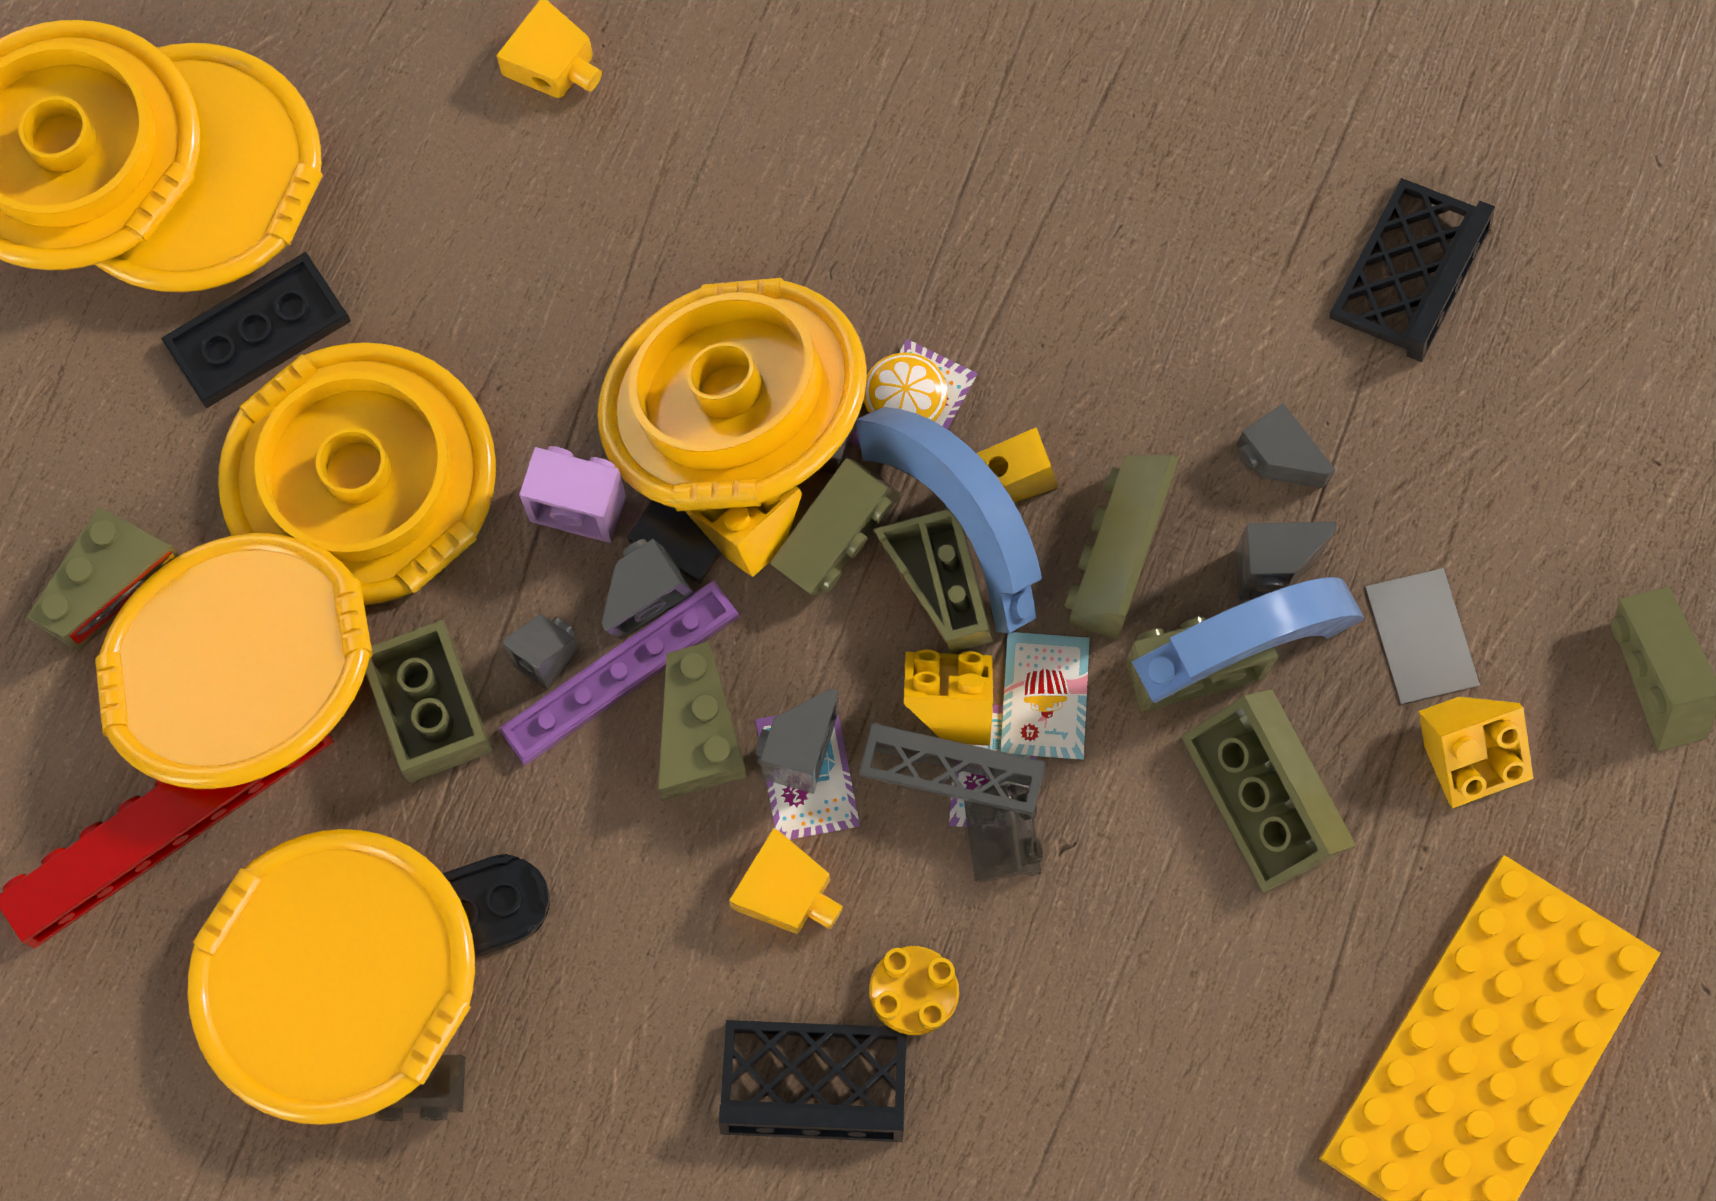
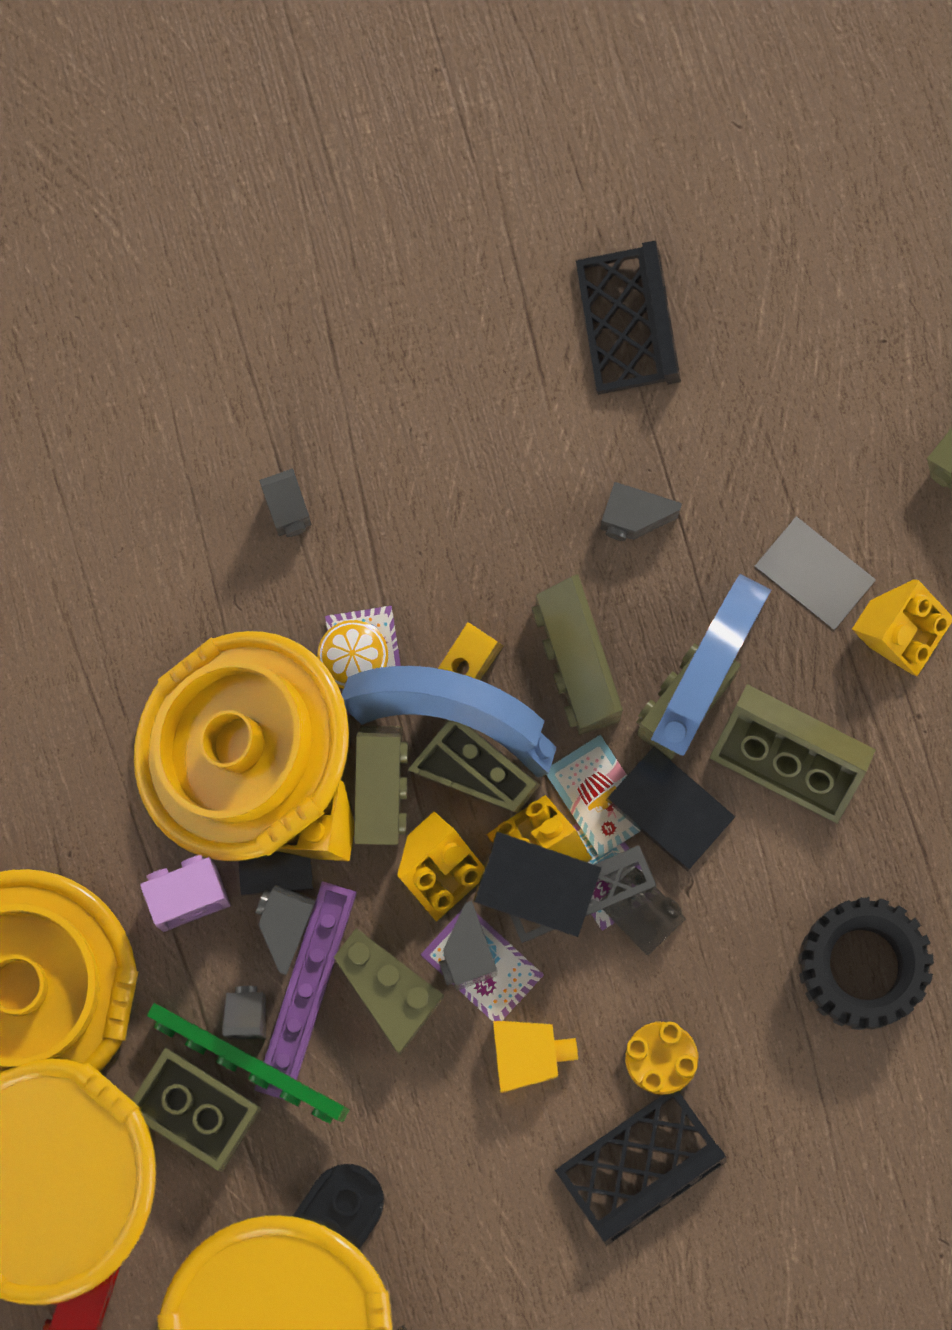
camera: 35 degrees left, 5 degrees up
(514, 712) = (260, 1072): none -> green plate
(834, 645) = (438, 866): none -> yellow slope
(915, 724) = (537, 884): none -> black tile
(947, 203) = (286, 503): none -> dark grey slope
(1105, 756) = (670, 808): none -> black tile
(1235, 1015) = (906, 942): none -> black tyre
(1278, 554) = (687, 593): dark grey slope -> none

